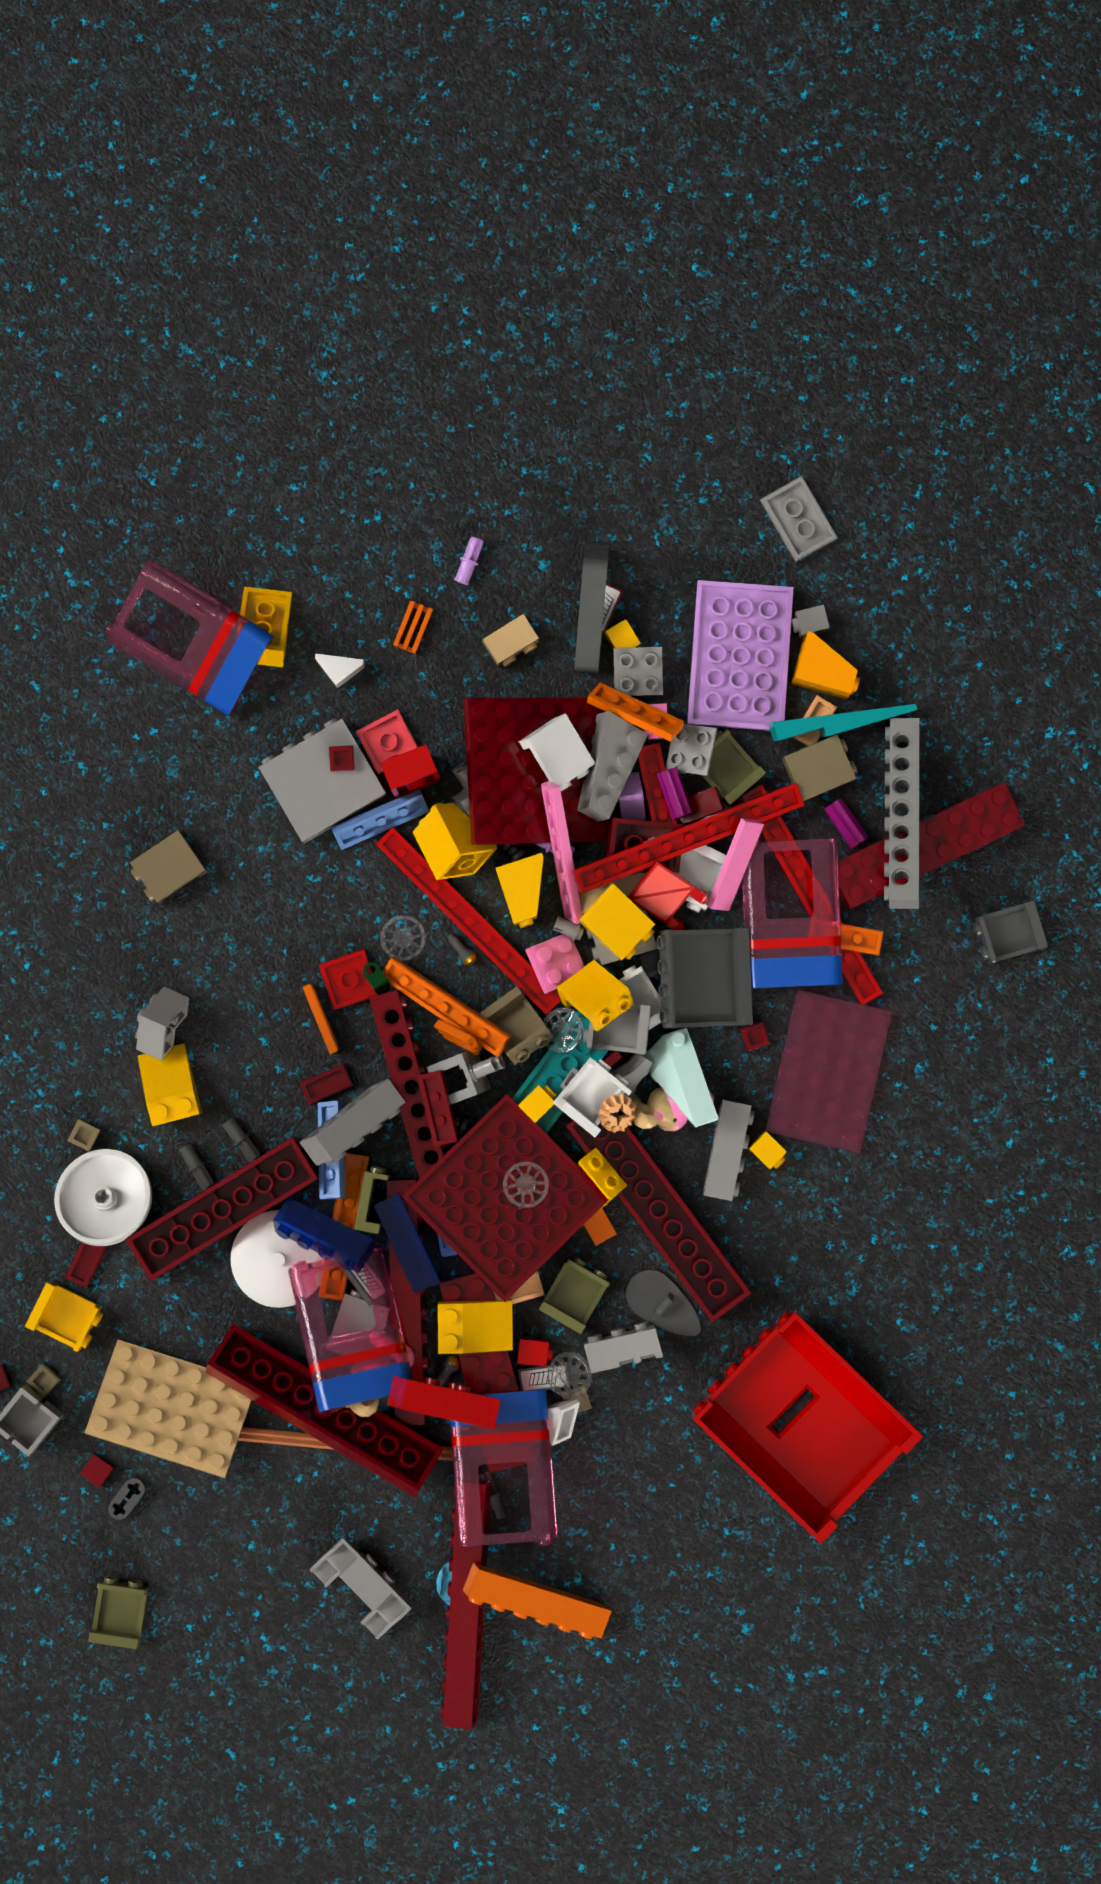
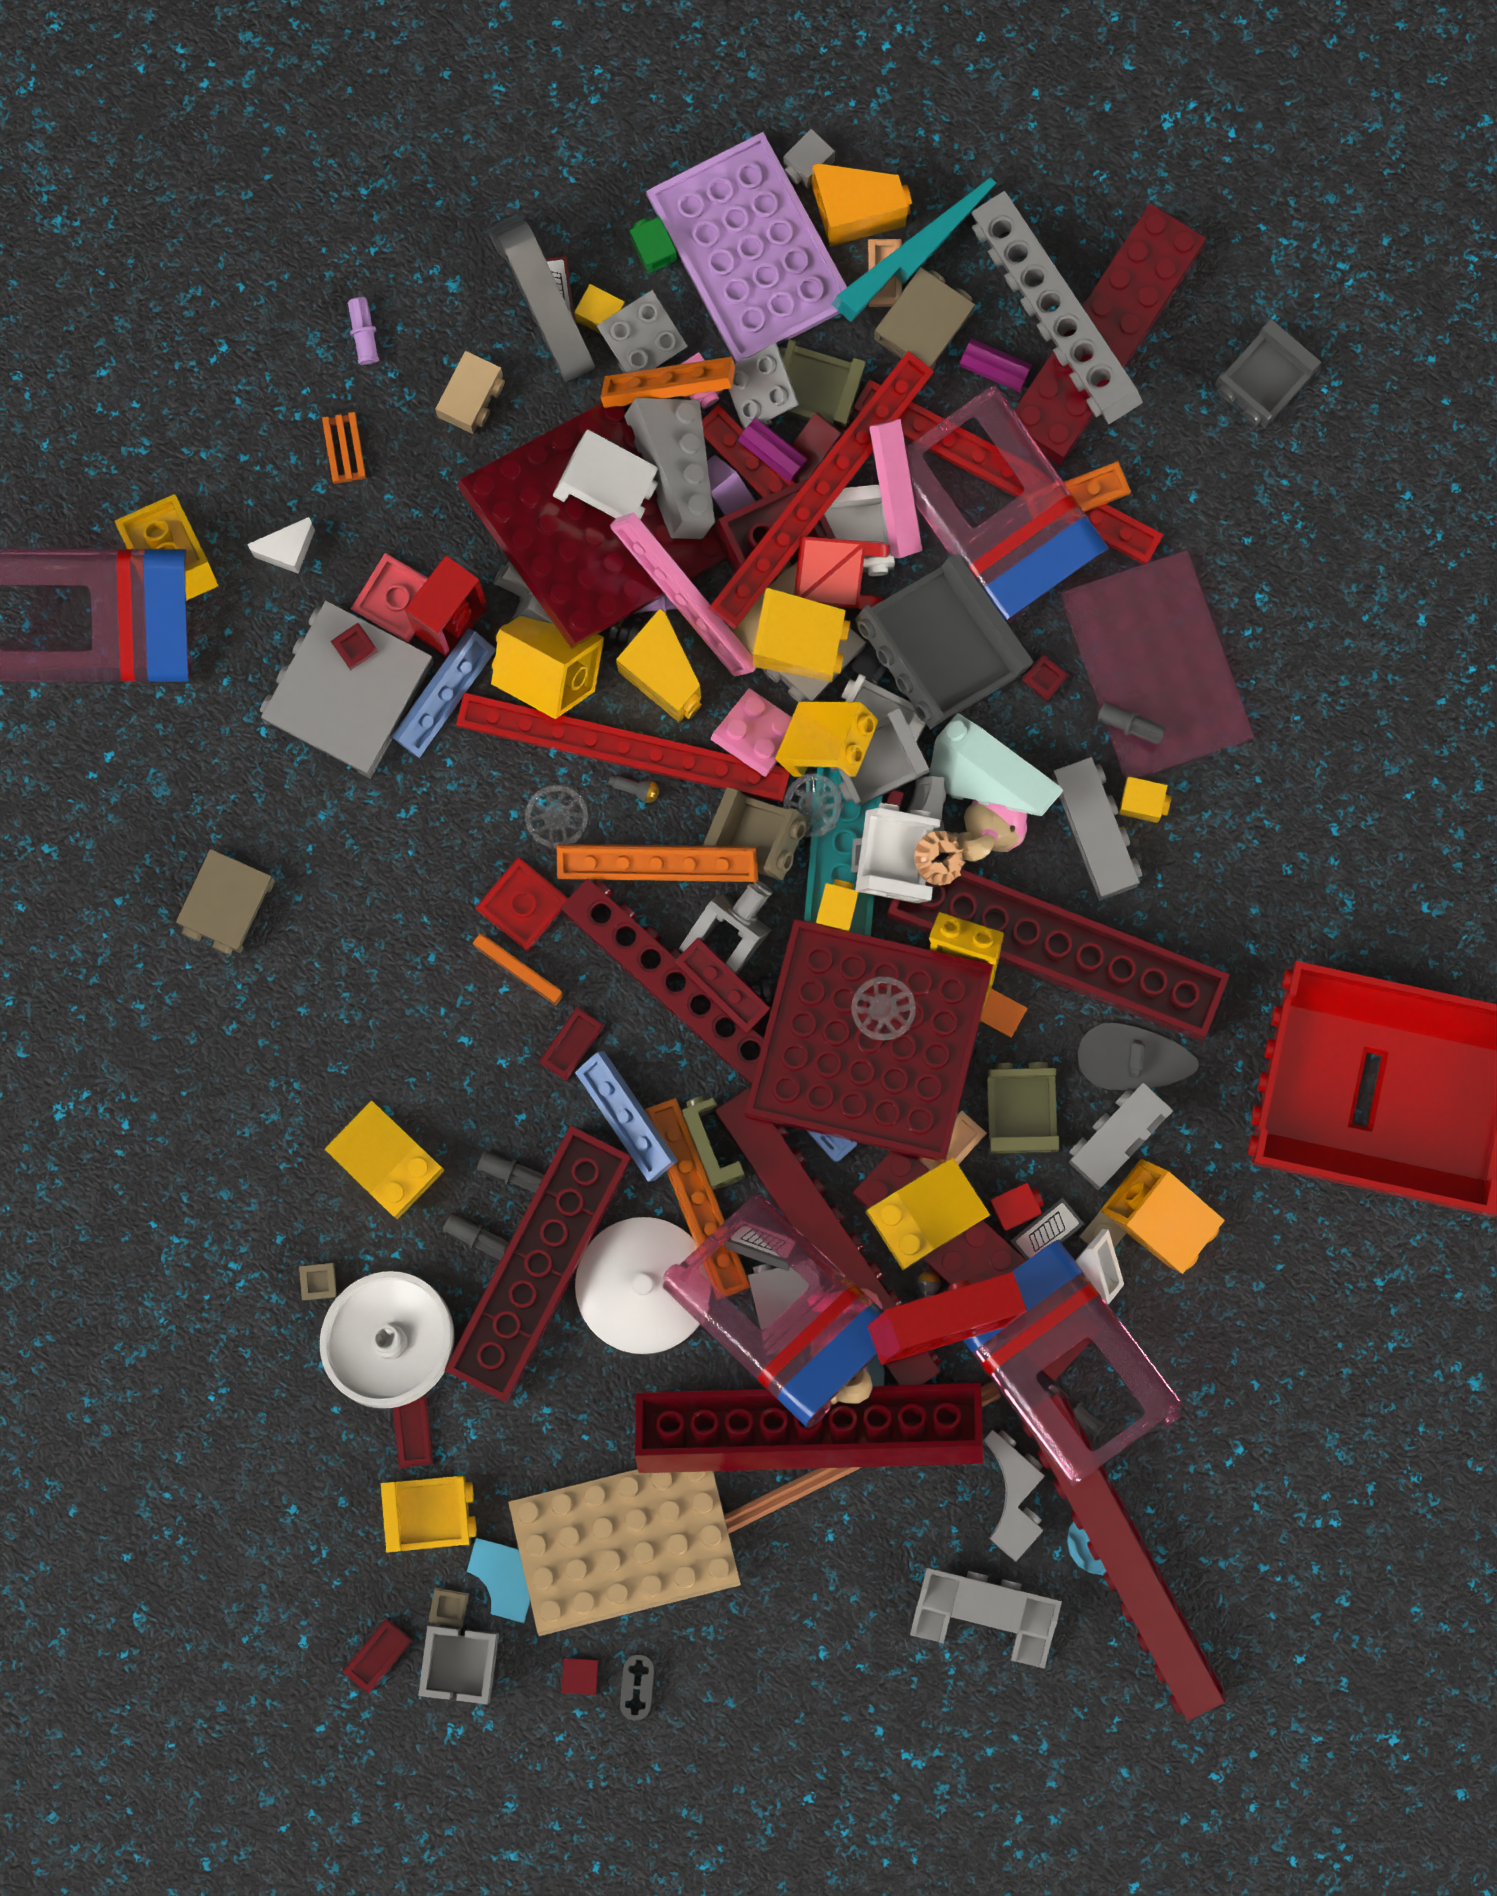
camera: 25 degrees left, 5 degrees down
(87, 1379) = (504, 1577): none -> medium azure tile
(119, 1613) = (712, 1831): olive panel -> none
(159, 1021) = (328, 1090): light grey brick -> none
(323, 1235) = (679, 1218): clear blue brick -> none
(352, 1123) = (633, 1063): light grey brick -> none
(376, 979) = (556, 880): dark green piece -> none
(407, 1243) = (785, 1167): clear blue panel -> none
(412, 1545) = (1021, 1475): none -> light grey arch
(458, 1037) = (694, 888): orange tile -> none
(537, 1601) = (1206, 1497): orange brick -> none
(568, 928) = (746, 683): light grey pin -> none
(569, 1375) = (1076, 1207): clear wheel -> none
(619, 1412) = (1163, 1215): none -> light orange slope
(681, 616) = (652, 244): none -> green brick
(789, 1100) = (1131, 723): none -> dark grey axle
(798, 519) = (720, 52): light grey tile -> none

